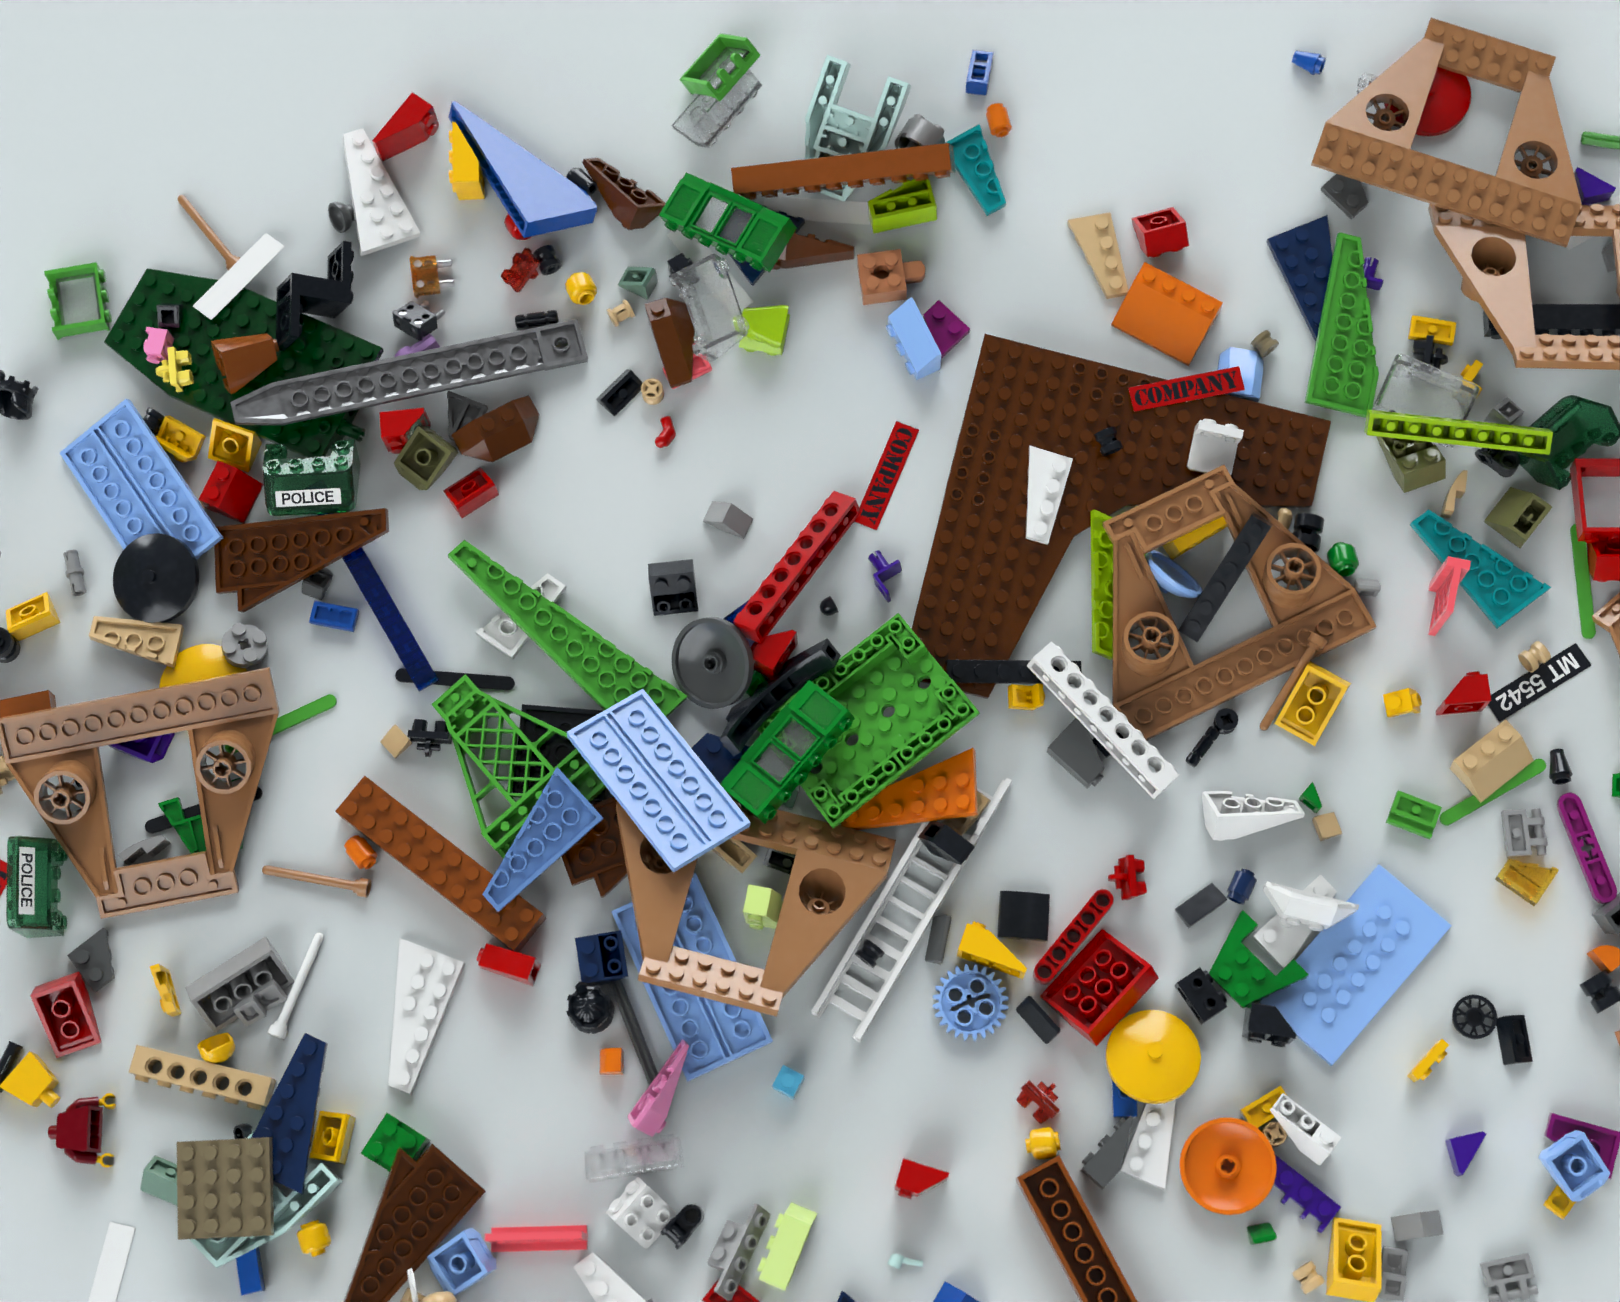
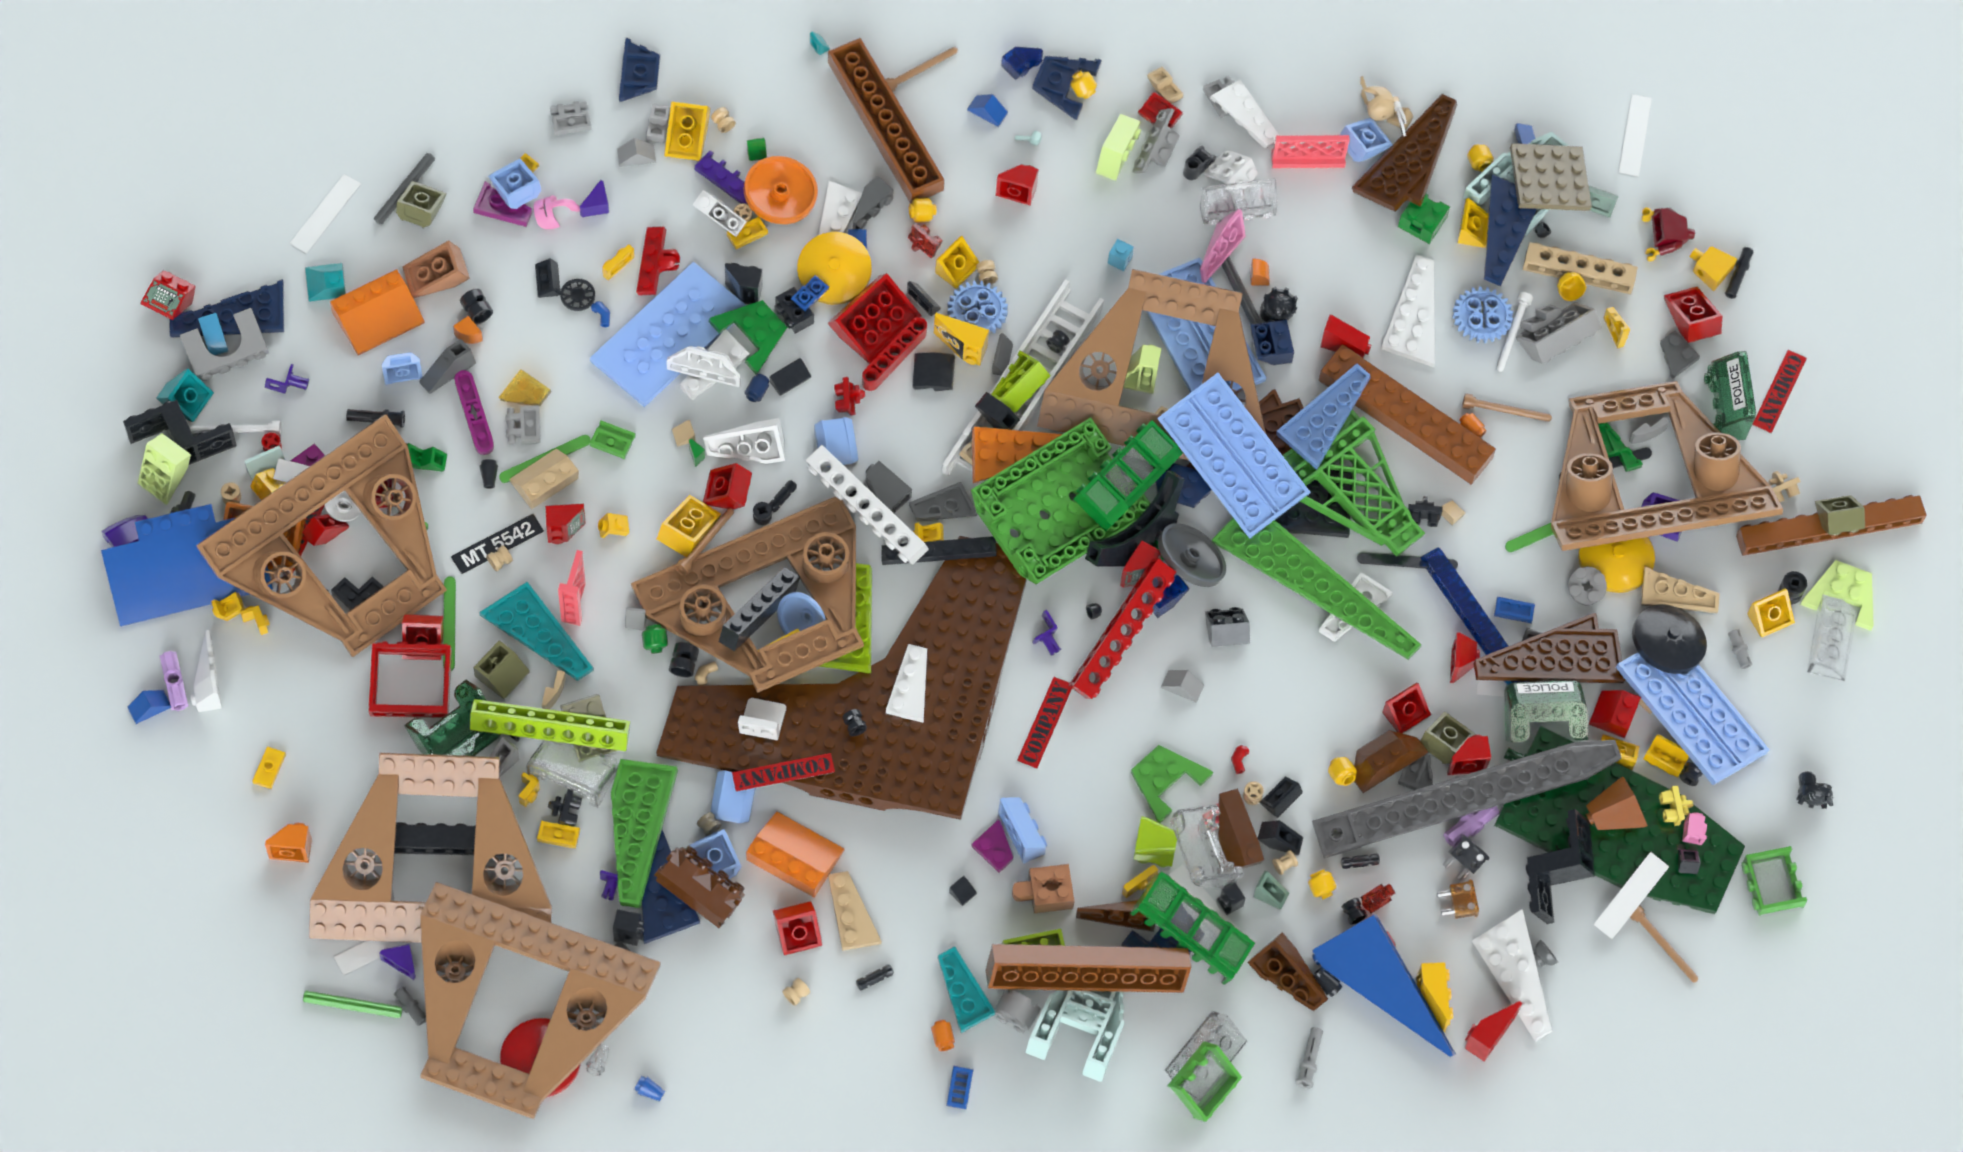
camera: 170 degrees right, 10 degrees down
(311, 1008) = (1499, 314): none -> light blue gear
(400, 549) = (1463, 655): none -> red slope
(550, 416) = (1342, 771): none -> yellow head
(610, 96) = (1308, 1066): none -> light grey pin
(625, 339) = (1280, 837): none -> black slope
(756, 417) = (1159, 772): none -> bright green wing
(782, 288) = (1140, 882): none -> yellow plate
(917, 886) = (1021, 381): none -> lime wedge
(959, 1060) = (986, 271): none -> tan wheel
(979, 278) = (962, 890): none -> black slope
(995, 1066) = (956, 263): none -> yellow slope
(1009, 737) = (944, 504): none -> dark grey wing
(1073, 183) = (874, 977): none -> black axle
(1139, 815) = (838, 439): none -> light blue slope
(1159, 162) = (796, 991): none -> tan wheel
(1184, 1009) = (810, 293): none -> blue slope
(1258, 307) = (719, 851): none -> light blue slope
(1269, 752) = (727, 487): none -> red slope
(1278, 263) = (699, 886): none -> reddish brown brick
(1347, 218) = (628, 927): none -> black brick
(1381, 1065) = (655, 260): none -> red plate
(1441, 993) = (599, 307): none -> blue arm
(1528, 1124) = (549, 221): none -> bright pink helmet
(1575, 145) = (410, 1006): none -> dark grey pin

